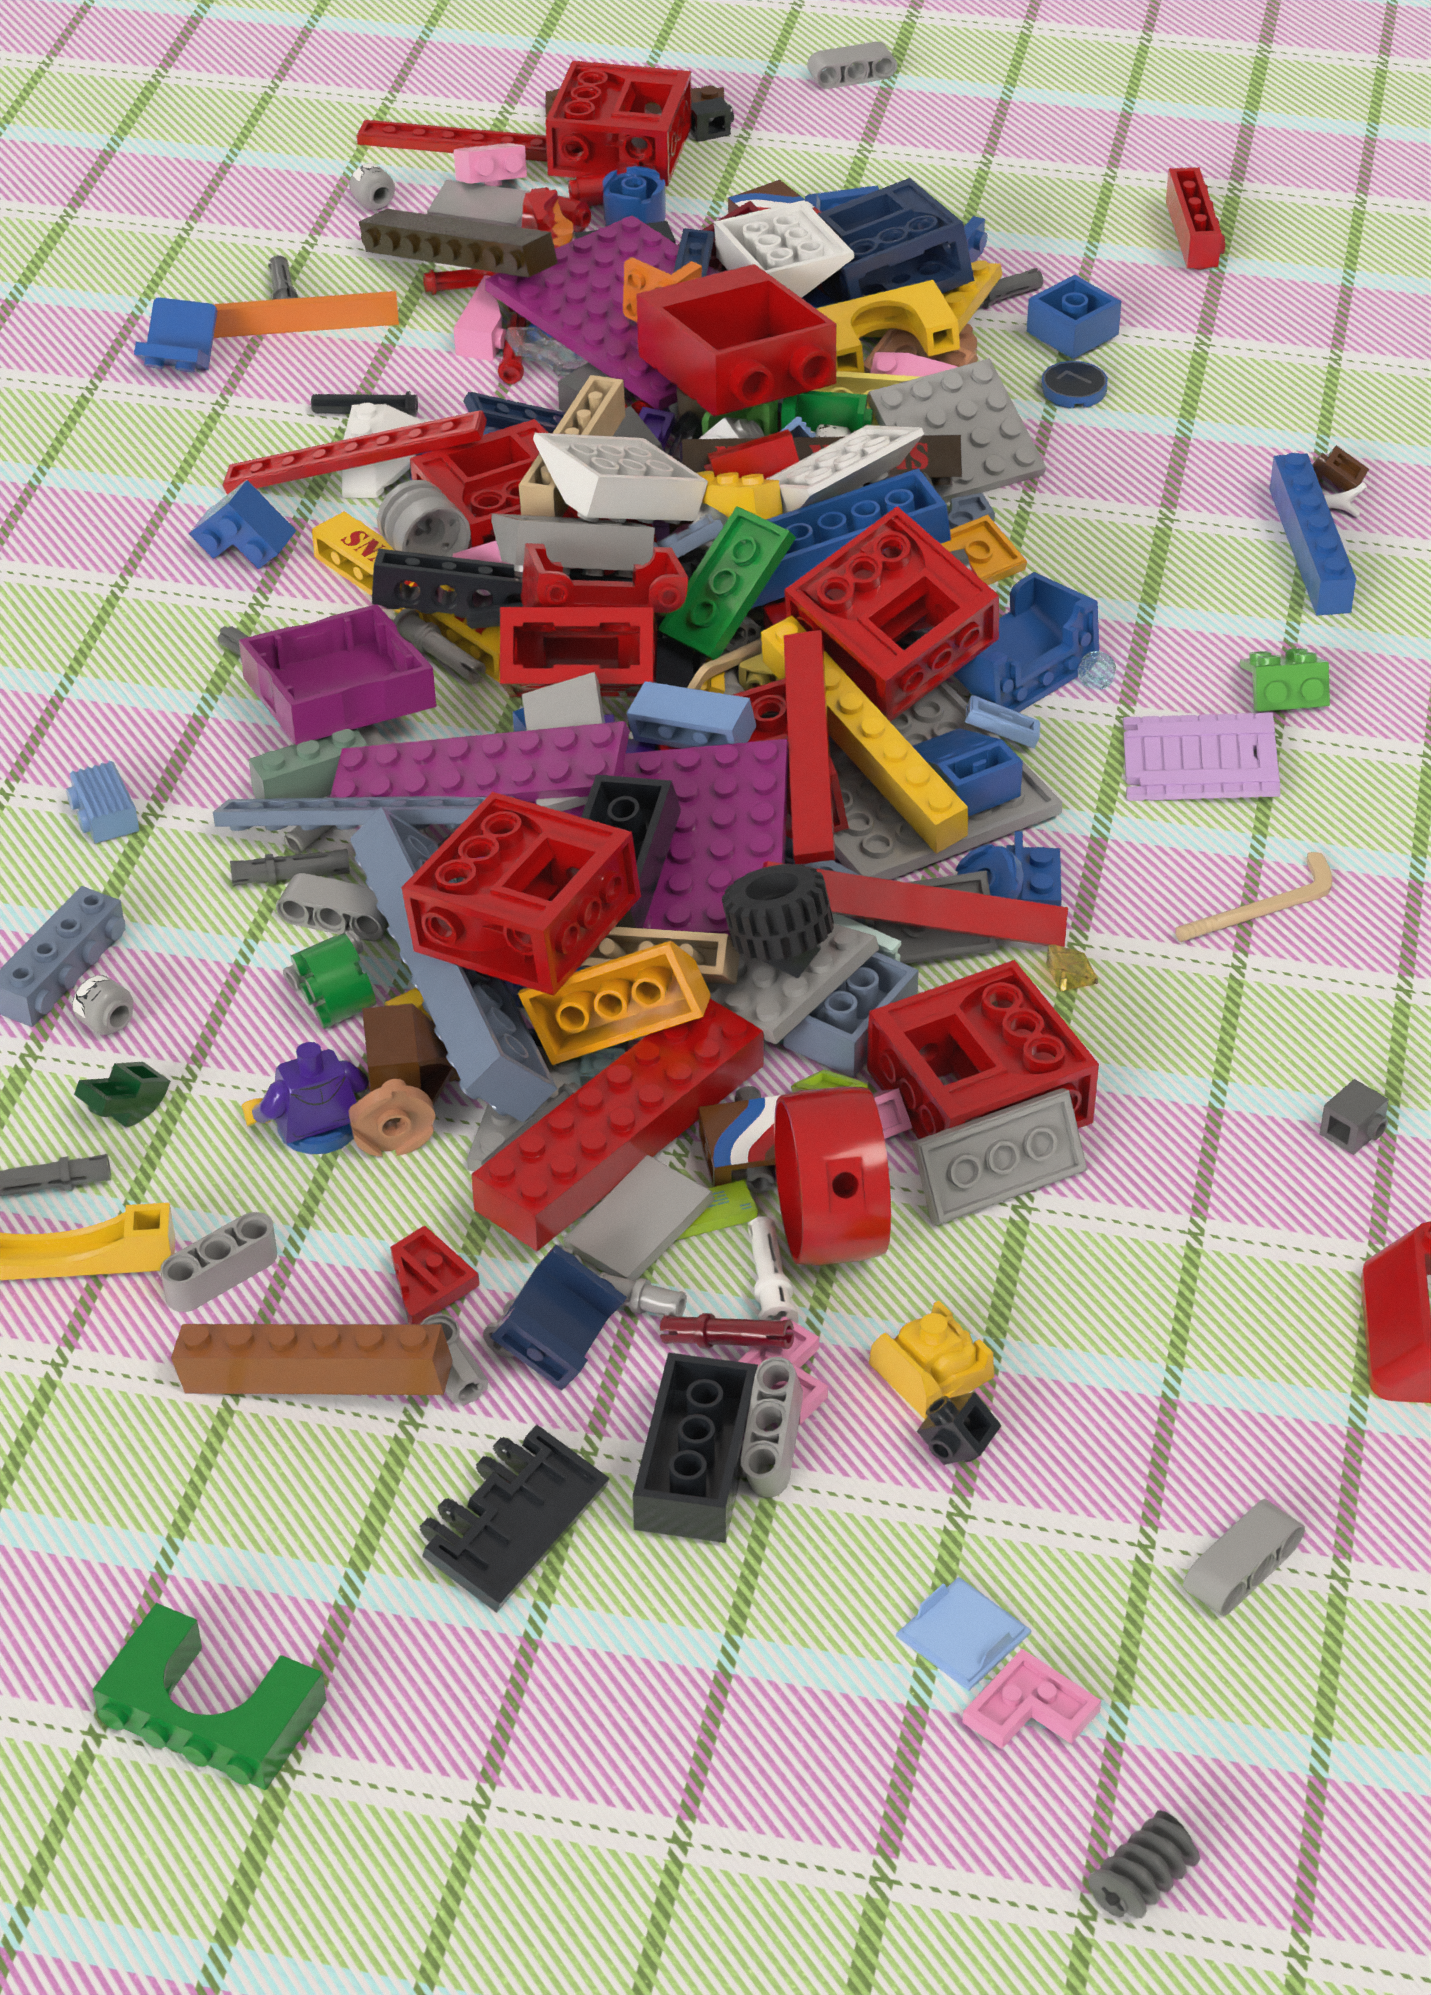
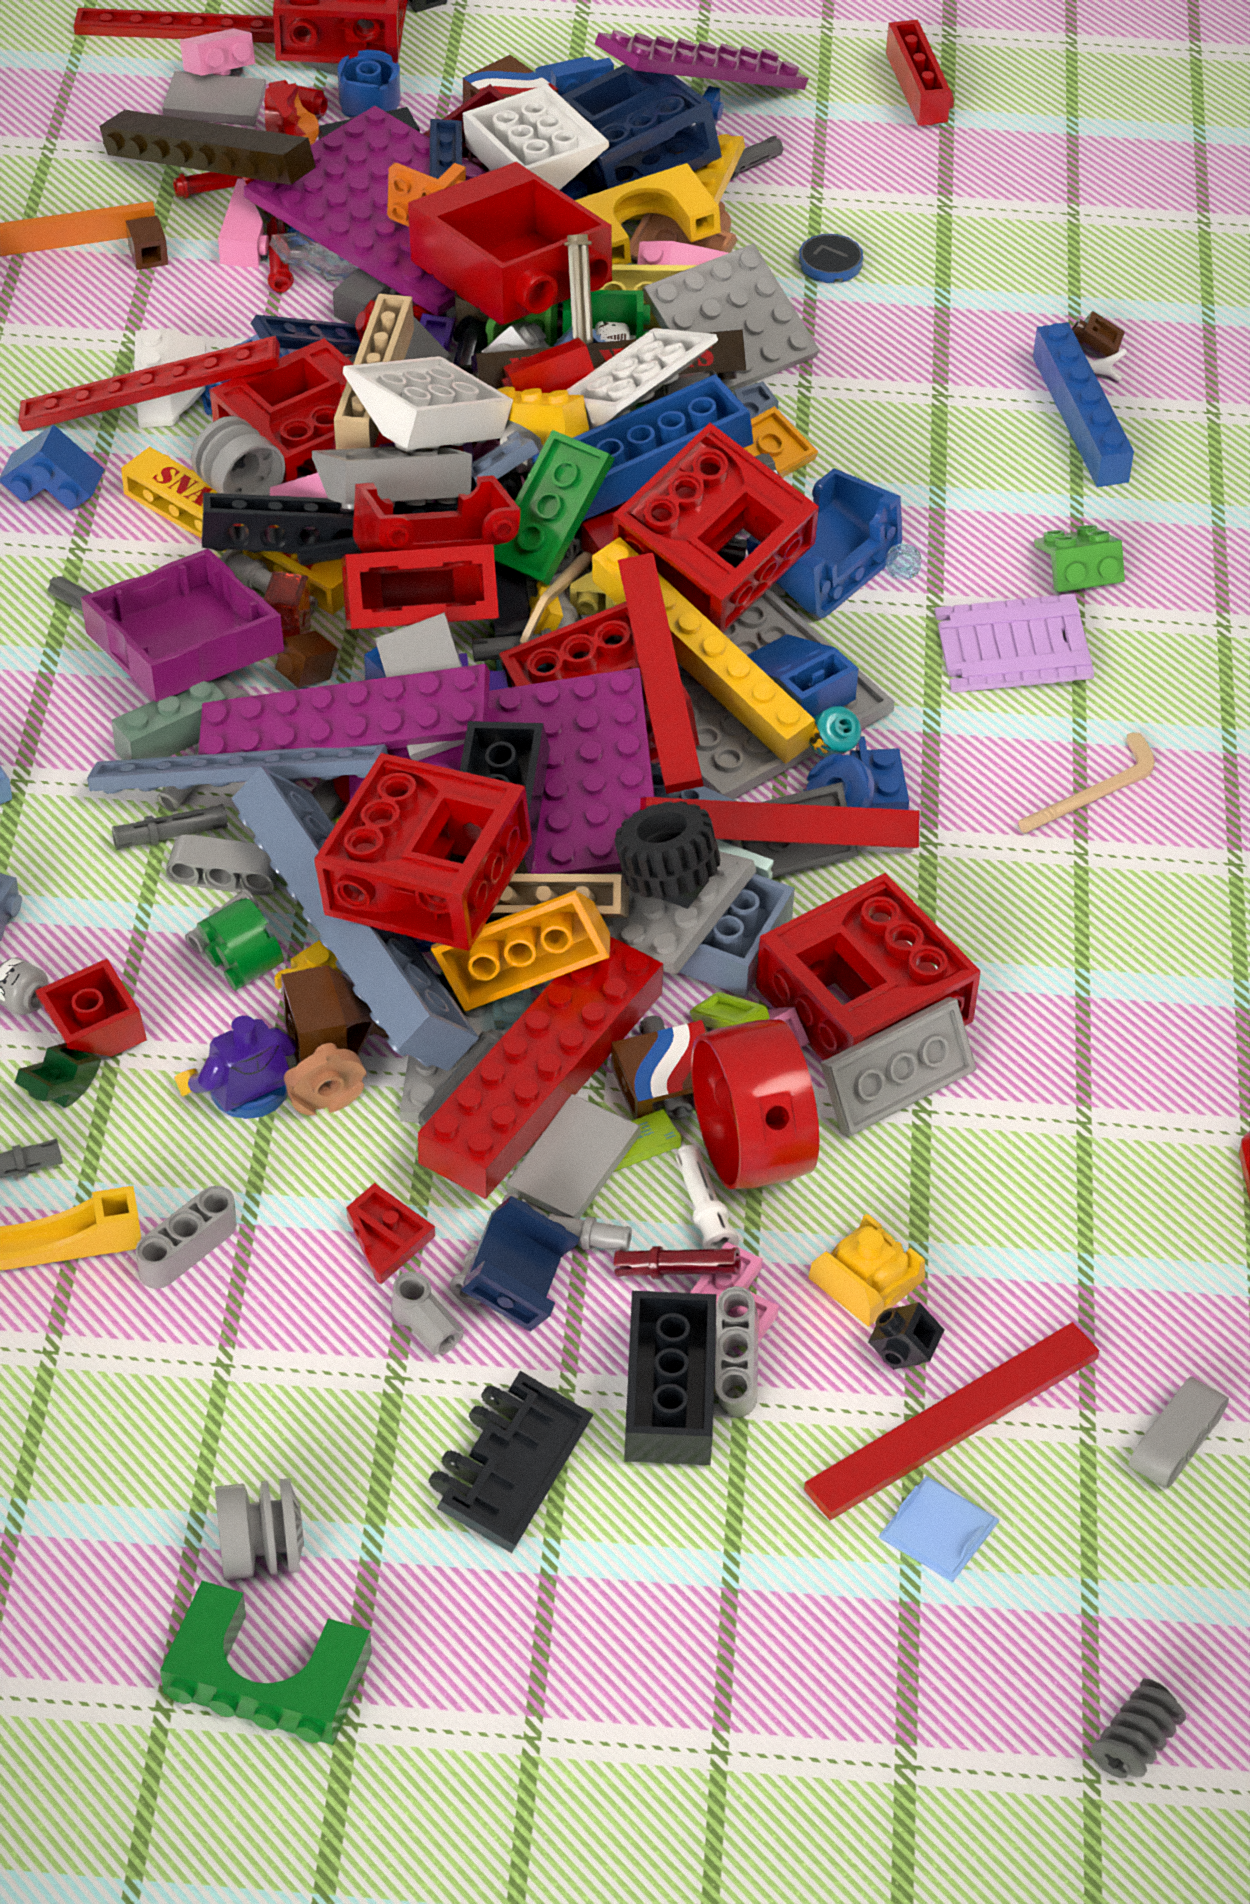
camera: 10 degrees left, 5 degrees up
(170, 1033) = (93, 1011): none -> red slope
(225, 1556) = (258, 1529): none -> light grey wheel
(281, 278) = (31, 194): dark grey pin -> none
(312, 1359) = (298, 1327): dark orange brick -> none
(343, 402) = (128, 325): black axle -> none
(372, 186) = (102, 84): light grey head -> none
(385, 329) = (147, 242): none -> reddish brown brick
(453, 672) = (290, 598): none -> clear red brick
(460, 715) = (306, 659): none -> reddish brown brick
(587, 188) = (320, 74): red brick -> none
(689, 717) = (540, 650): medium blue brick -> none
(796, 380) = (580, 287): none -> axle
(968, 190) = (701, 60): none -> magenta plate
(990, 822) = (835, 731): none -> teal head
(995, 1522) = (950, 1421): none -> red tile
(1002, 721) = (824, 622): light blue tile -> none
(1030, 1690) = (1009, 1578): bright pink plate -> none
(1069, 968) = (927, 869): clear yellow slope -> none
(1073, 316) = (821, 187): blue brick -> none
(1354, 1117) = (1212, 996): dark grey brick -> none

